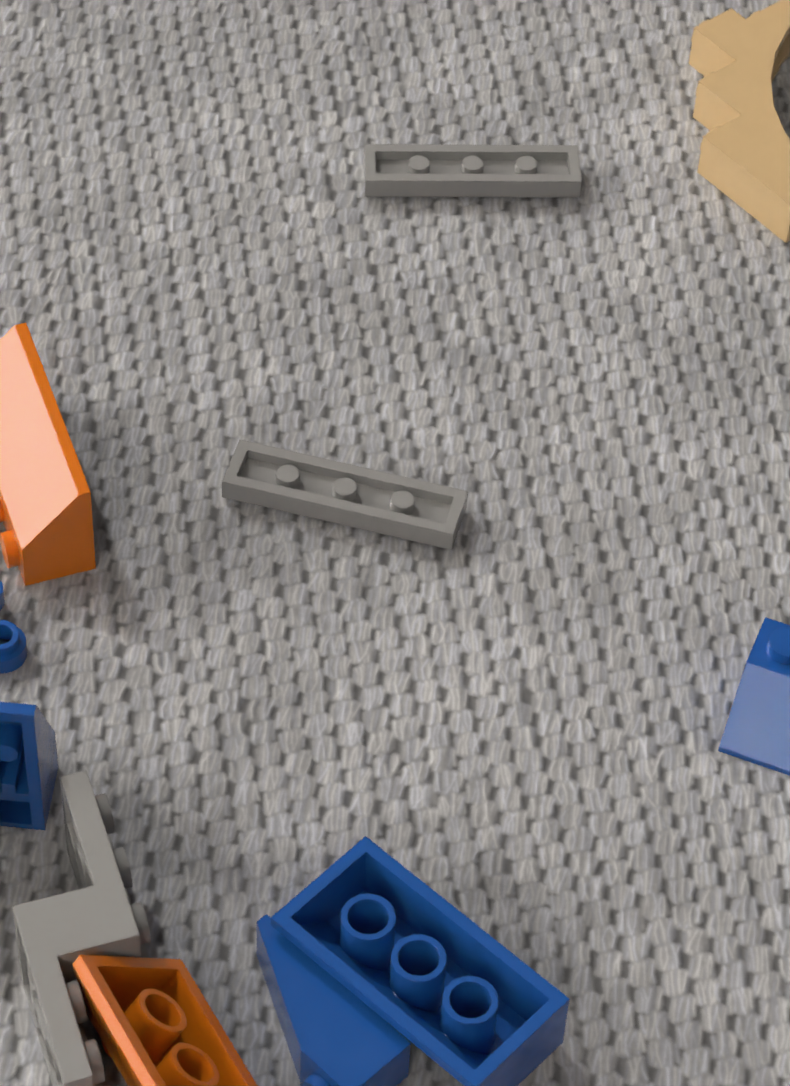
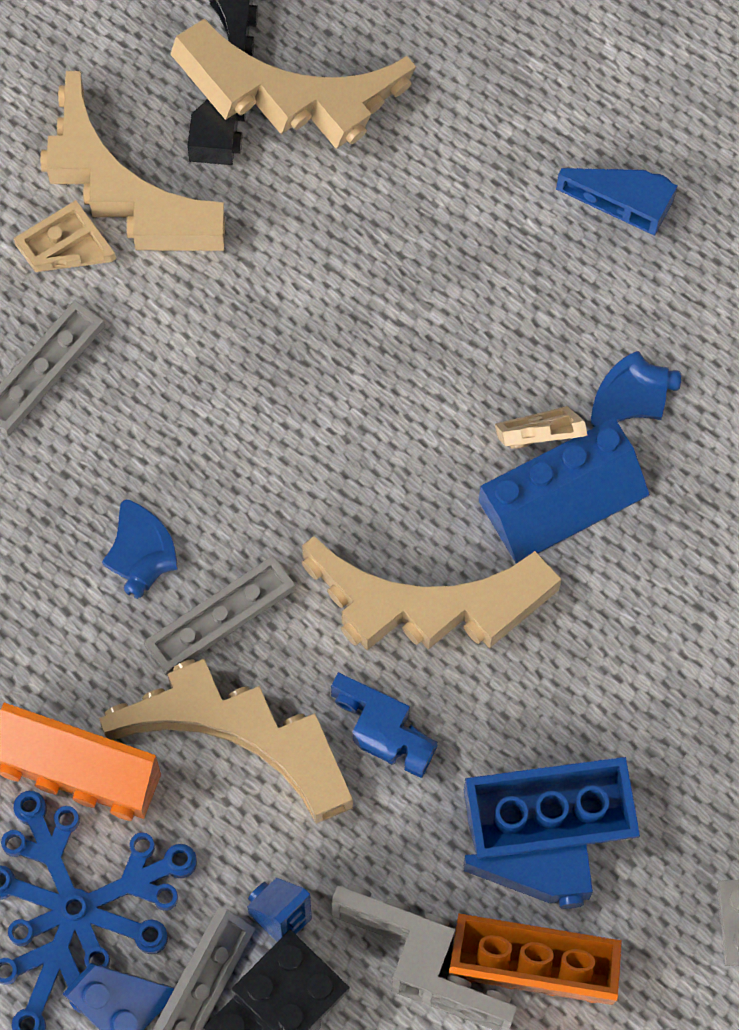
camera: 50 degrees left, 20 degrees up
(212, 537) = (195, 705): none -> tan arch
(351, 382) = (140, 549): none -> blue arm
(361, 737) = (382, 727): none -> blue plate
(619, 737) = (429, 613): none -> tan arch
(635, 104) = (64, 241): none -> tan wing

